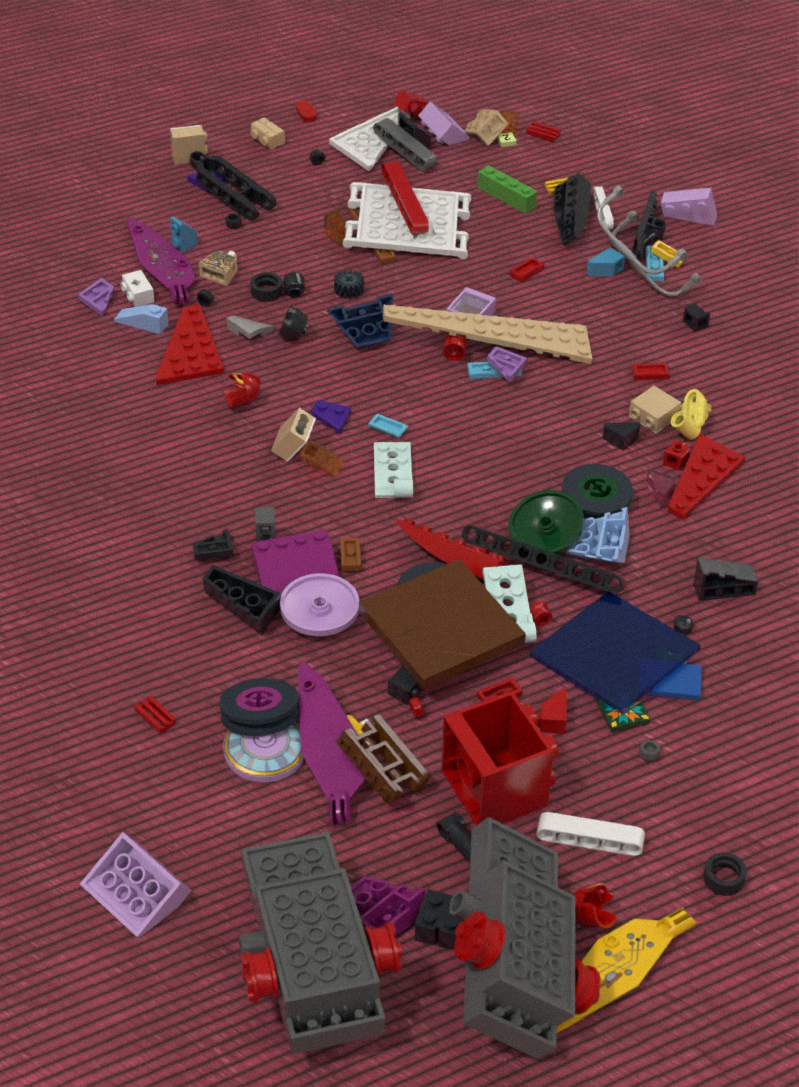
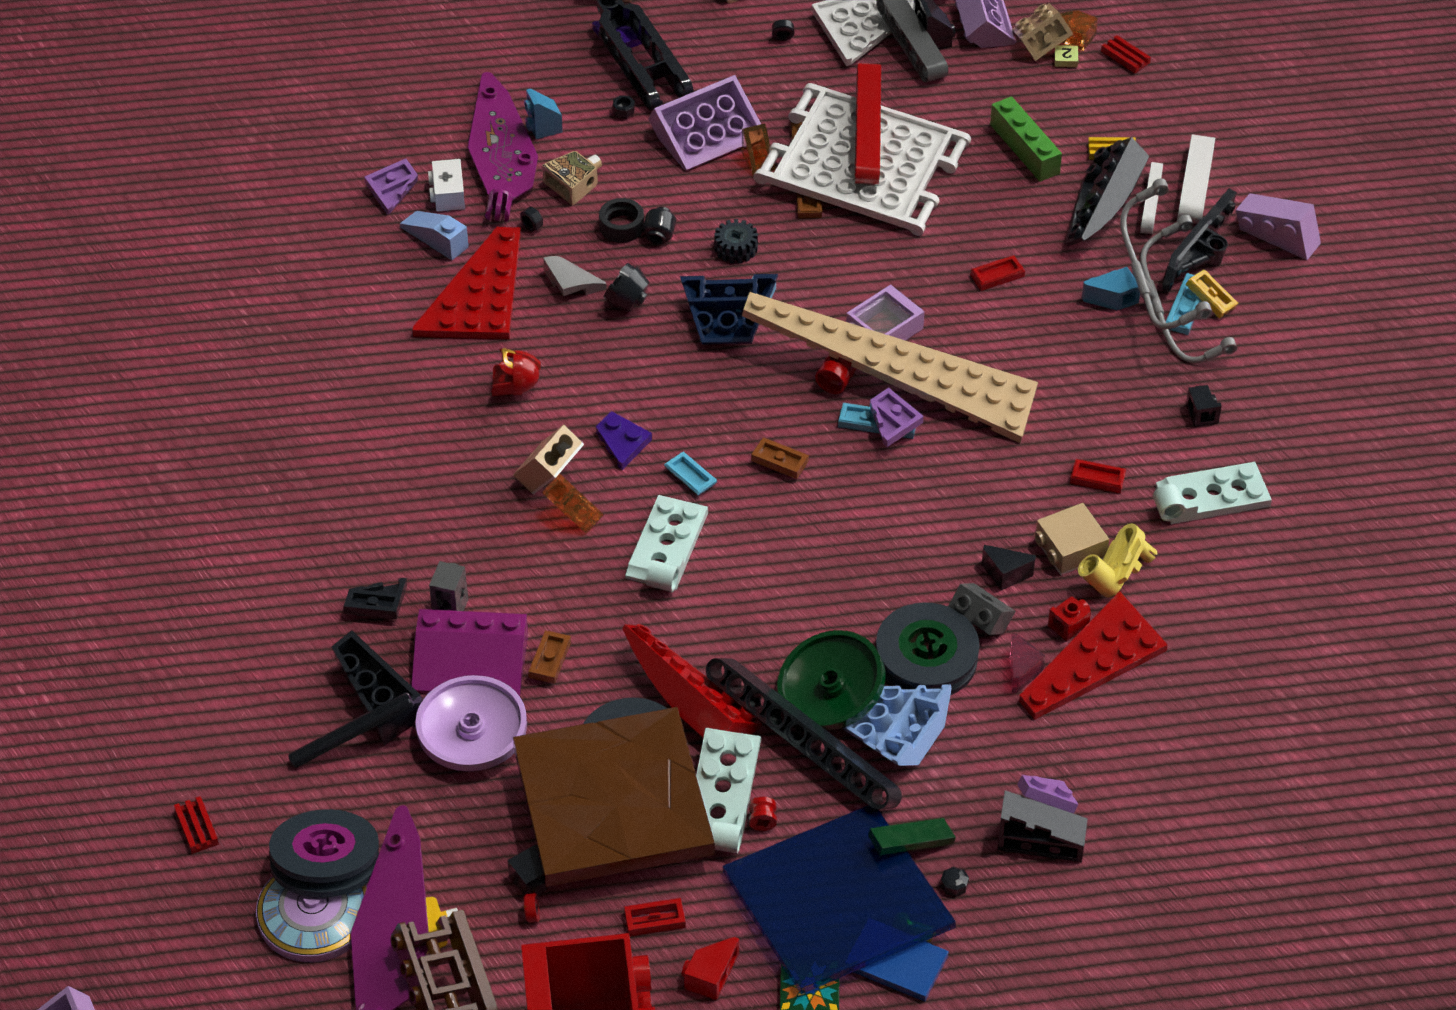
camera: 20 degrees right, 5 degrees up
(240, 627) = (351, 730): none -> black axle
(293, 219) = (704, 123): none -> lavender slope
(443, 403) = (780, 458): none -> dark orange plate
(620, 460) = (982, 608): none -> dark grey brick
(628, 202) = (1196, 177): none -> white beam
(644, 603) = (911, 836): none -> dark green tile
(717, 554) = (1048, 792): none -> medium lavender wing
(739, 358) = (1177, 509): none -> light aqua hinge

